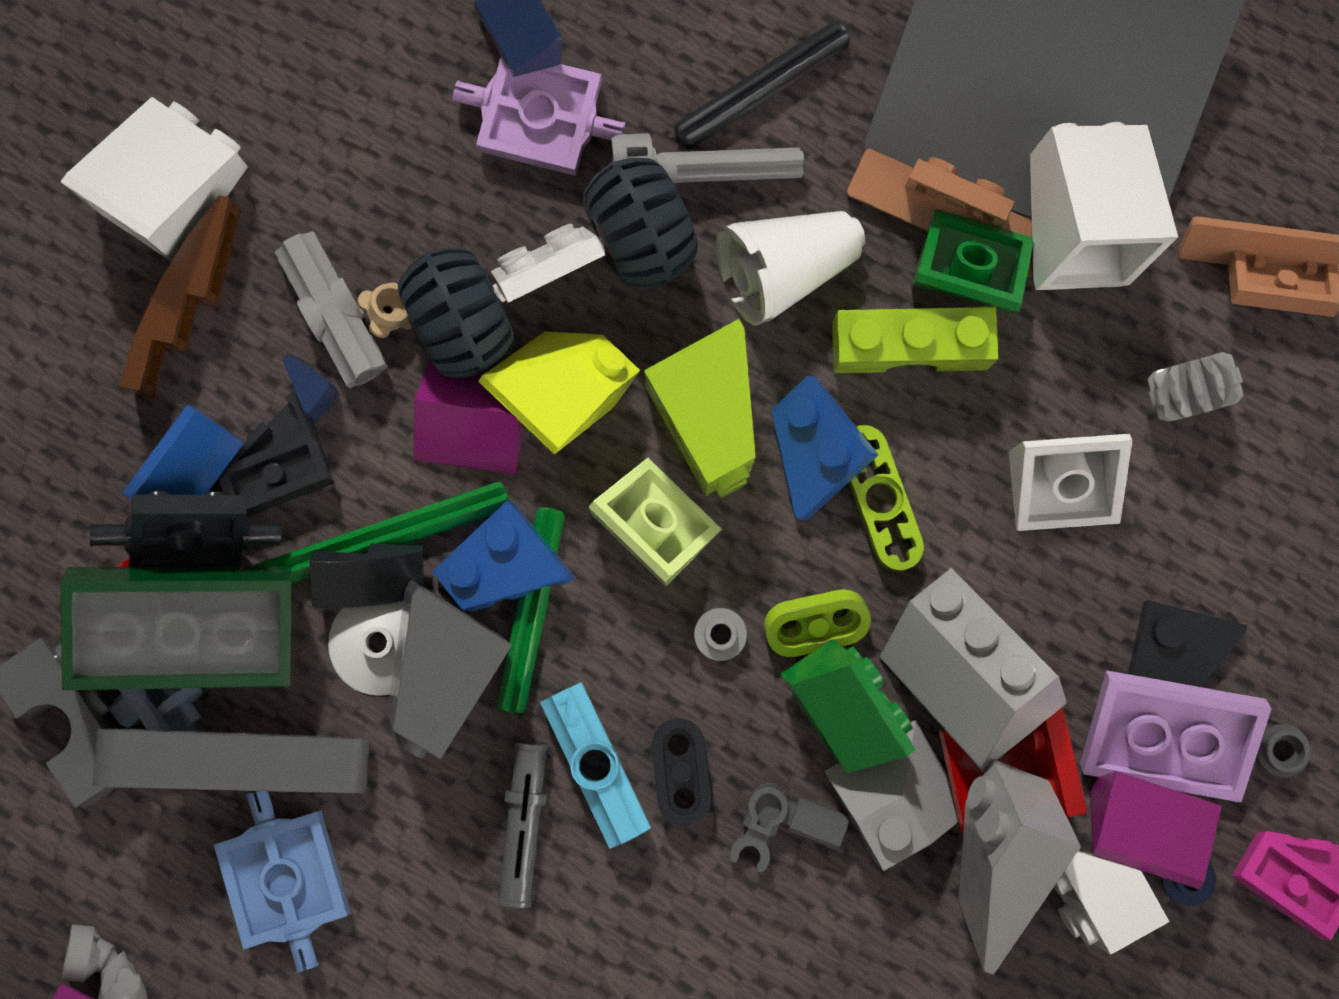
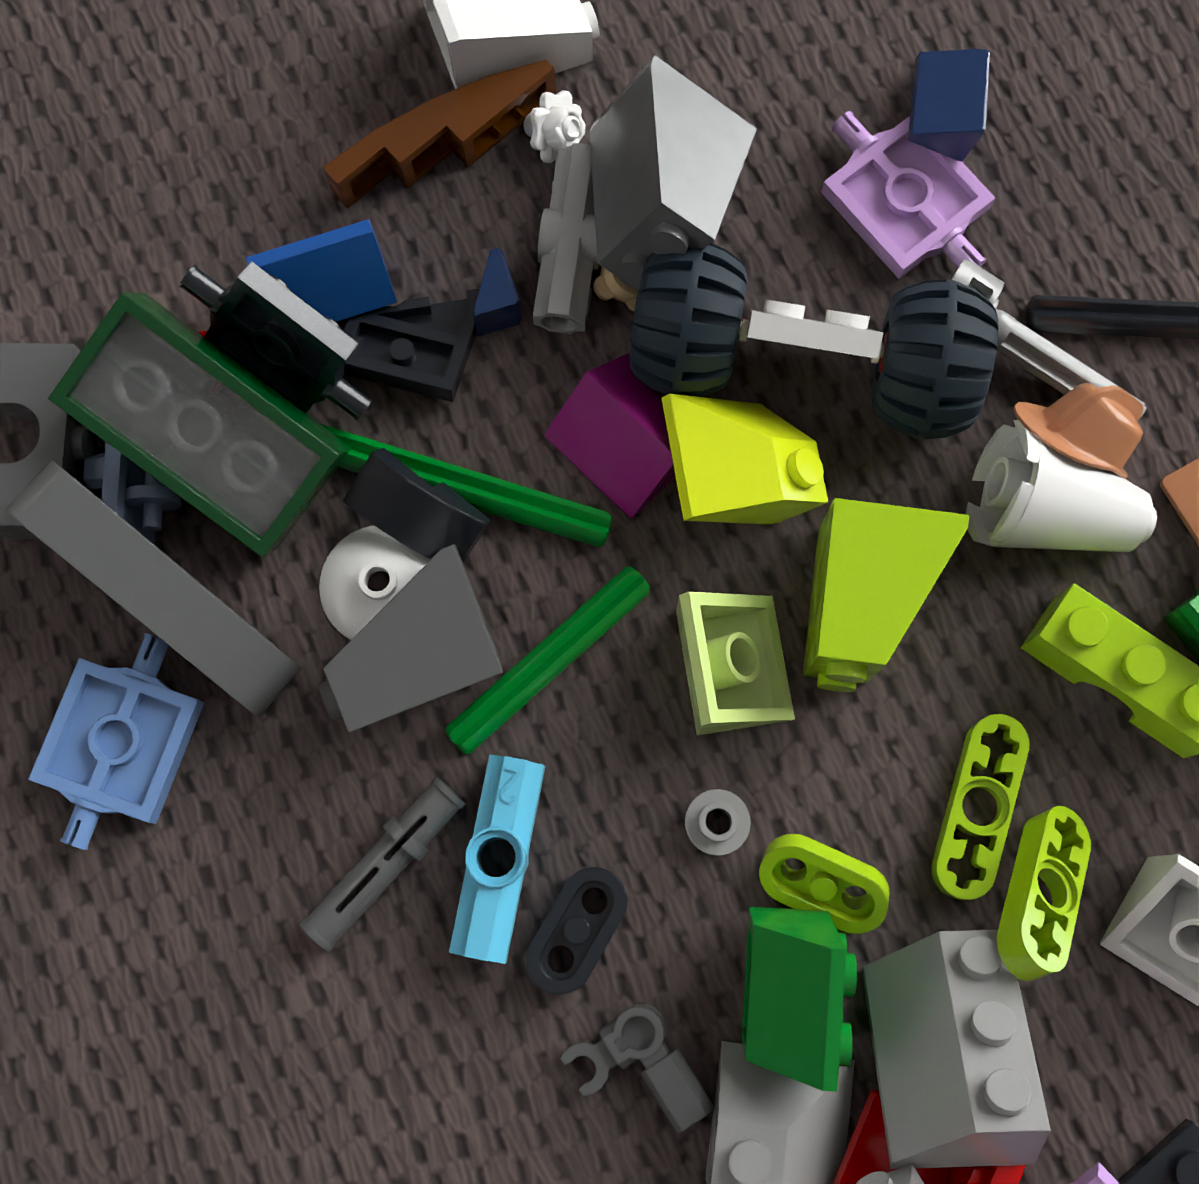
camera: 40 degrees right, 5 degrees down
(258, 236) = (554, 124): none -> white plant
(363, 224) = (662, 169): none -> dark grey slope
(501, 562) = (554, 590): blue wing -> none
(772, 198) = (1088, 425): none -> nougat piece
(817, 446) = (953, 707): blue wing -> none
(952, 545) = (1032, 933): none -> lime beam

